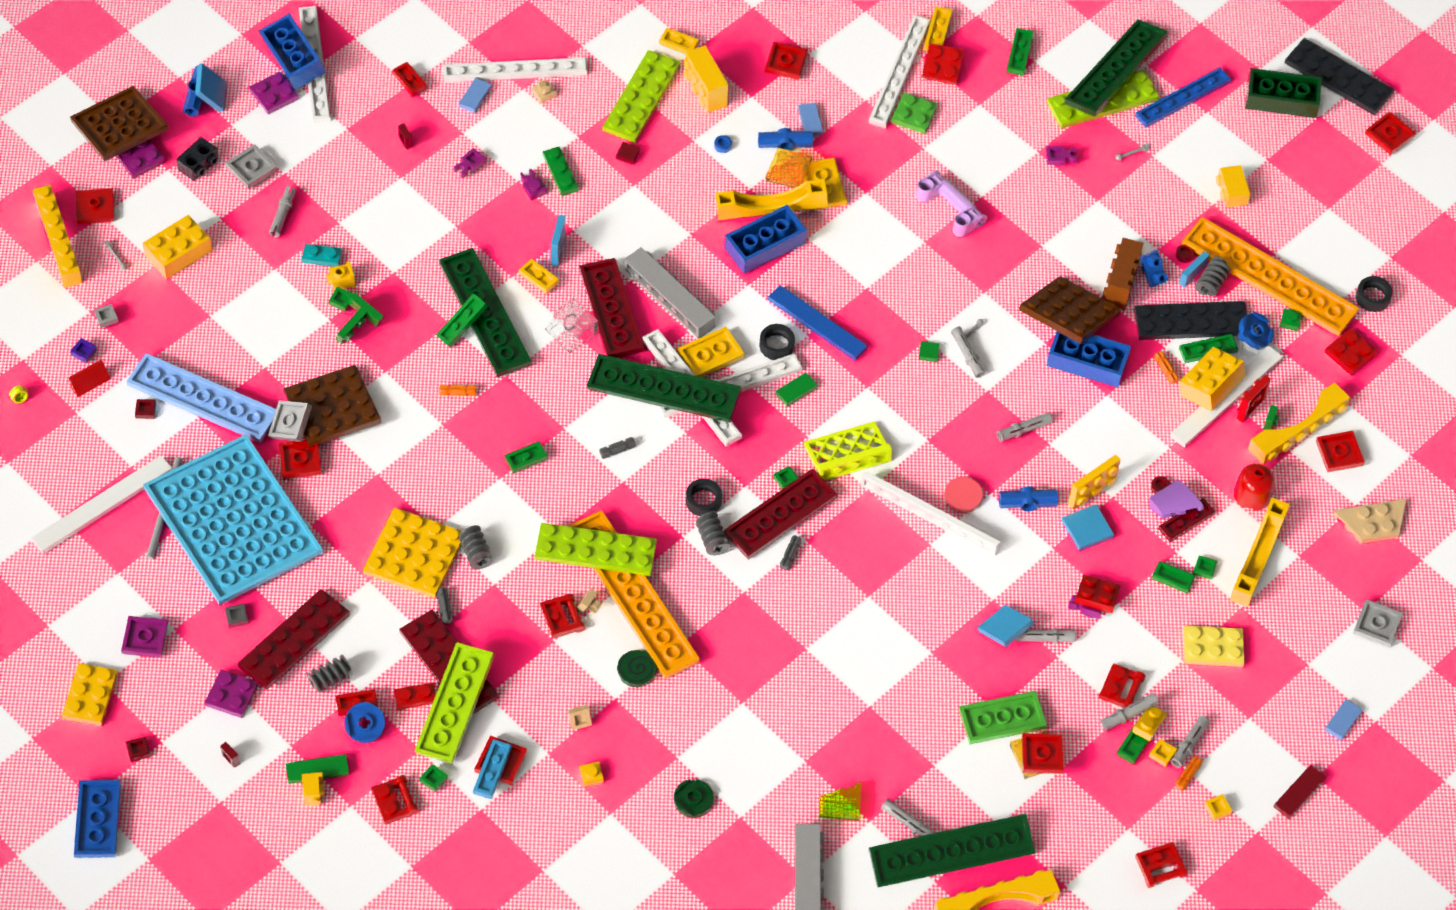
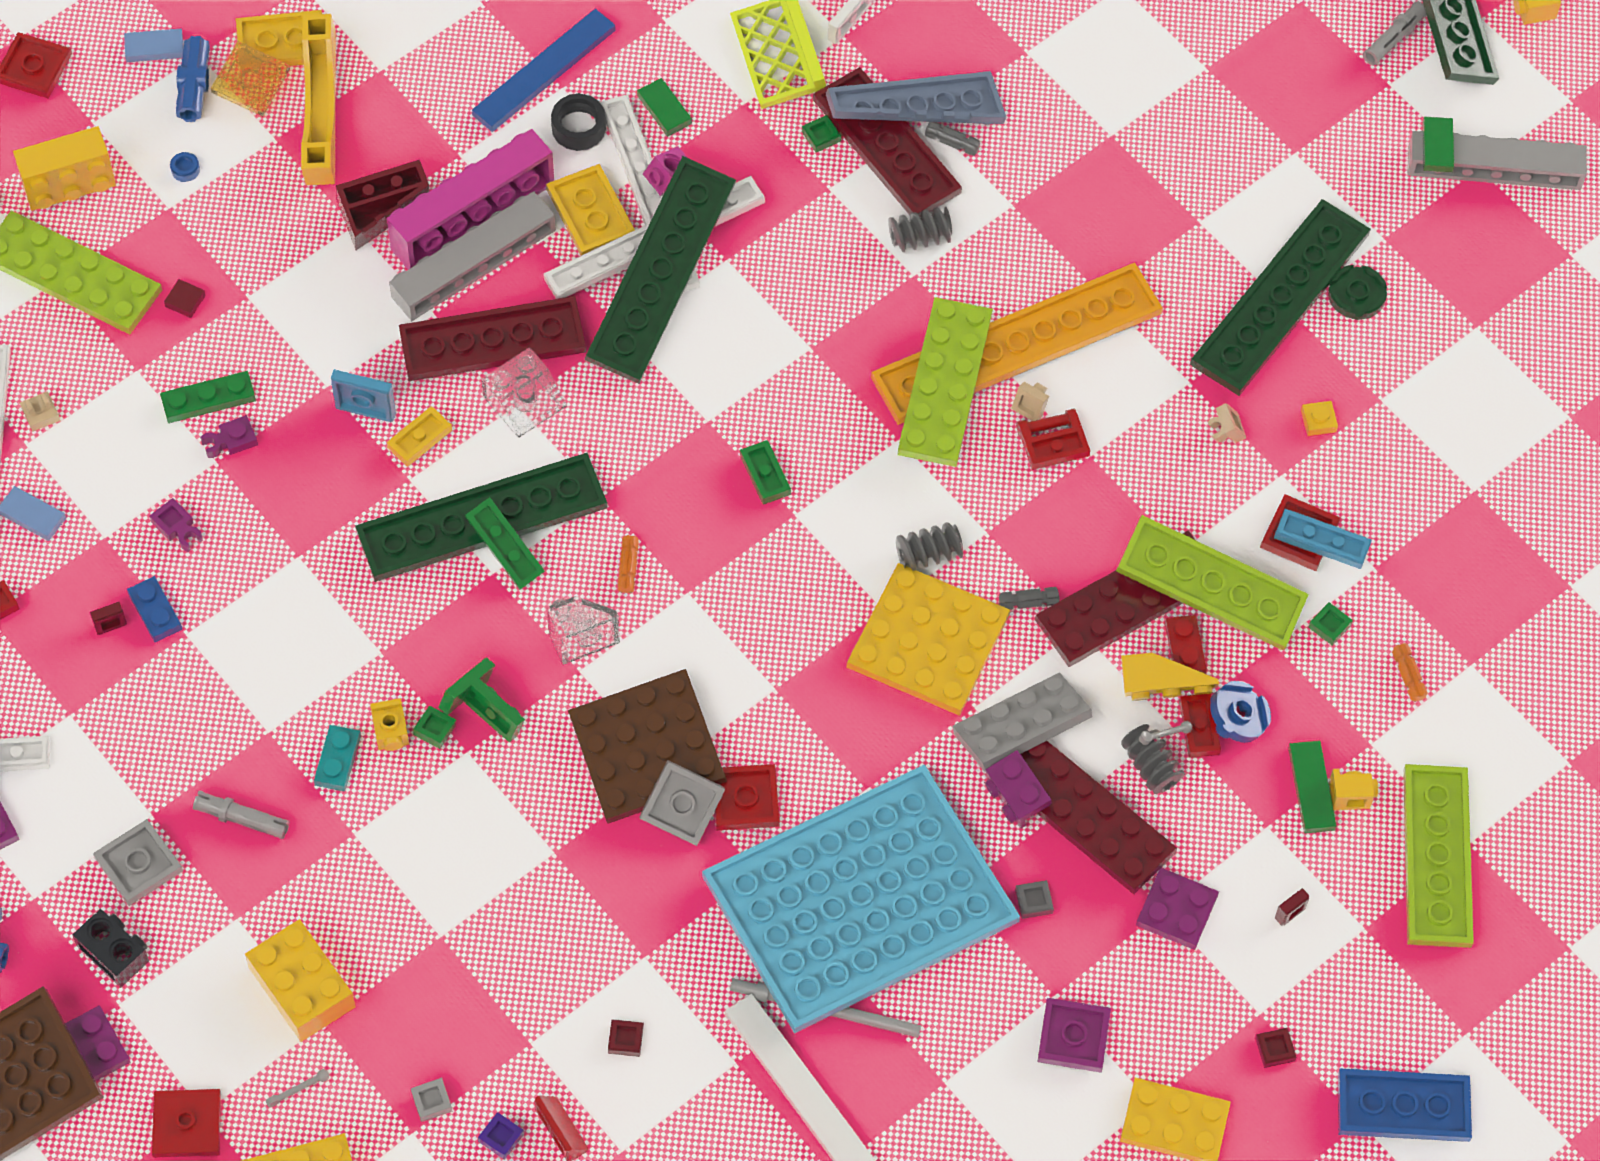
camera: 85 degrees left, 5 degrees up
(202, 397) = (613, 946): light blue plate -> none
(268, 840) = (1438, 856): none -> lime plate
(305, 597) = (1016, 788): none -> magenta bracket
(335, 660) = (1146, 737): none -> light grey hinge
(354, 602) = (1022, 721): none -> light grey plate
(388, 675) = (1155, 674): none -> yellow slope
(388, 802) = (1368, 689): red plate -> none
(401, 826) = (1409, 672): none -> orange axle
(404, 359) = (581, 628): none -> clear slope
(415, 159) = (154, 609): none -> blue plate
(617, 447) = (753, 348): dark grey axle -> none
(636, 668) = (1143, 348): dark green tile -> none
(683, 748) = (1280, 297): none -> dark green plate
(701, 239) = (373, 198): none -> dark red wedge
(703, 484) = (858, 220): black tyre -> none
(705, 283) = (470, 197): none -> dark pink brick
(748, 391) = (662, 169): none -> dark pink brick
(765, 239) = (389, 113): blue brick -> none
(807, 837) = (1438, 144): none -> green tile
(815, 540) = (930, 99): none -> sand blue wing
(842, 804) = (1368, 109): clear neon green wing -> none

